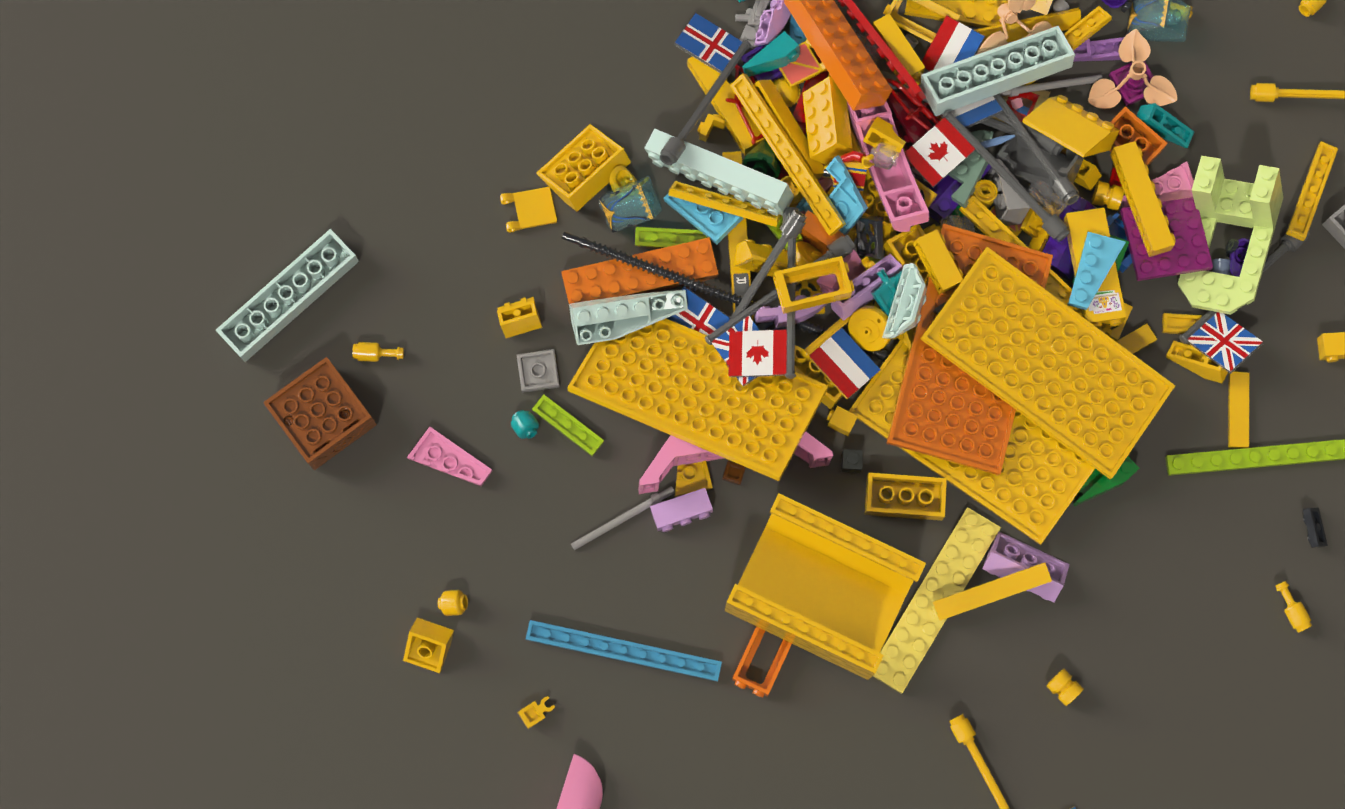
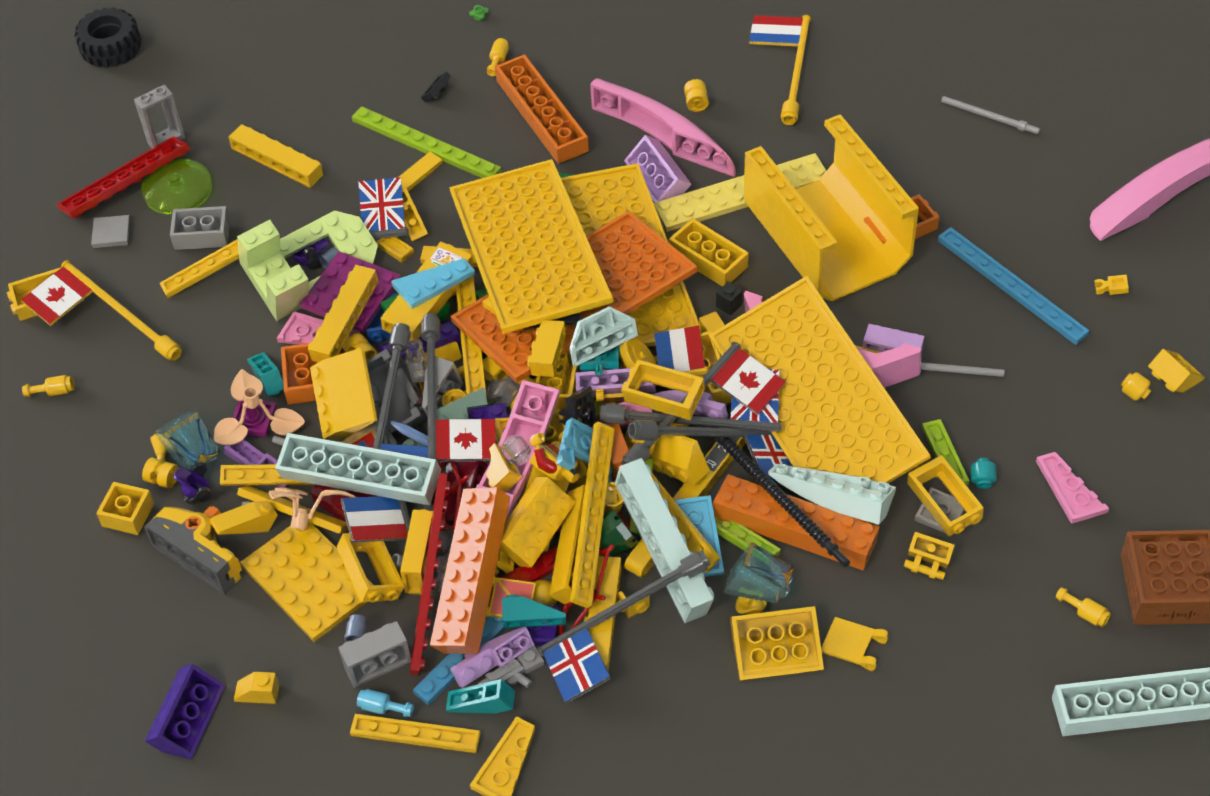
camera: 140 degrees left, 25 degrees down
(541, 360) = (940, 468): none -> yellow piece
(992, 591) = (696, 159): yellow tile -> none
(1053, 625) = (661, 122): none -> bright pink slope
(1193, 565) = (541, 109): none -> orange brick

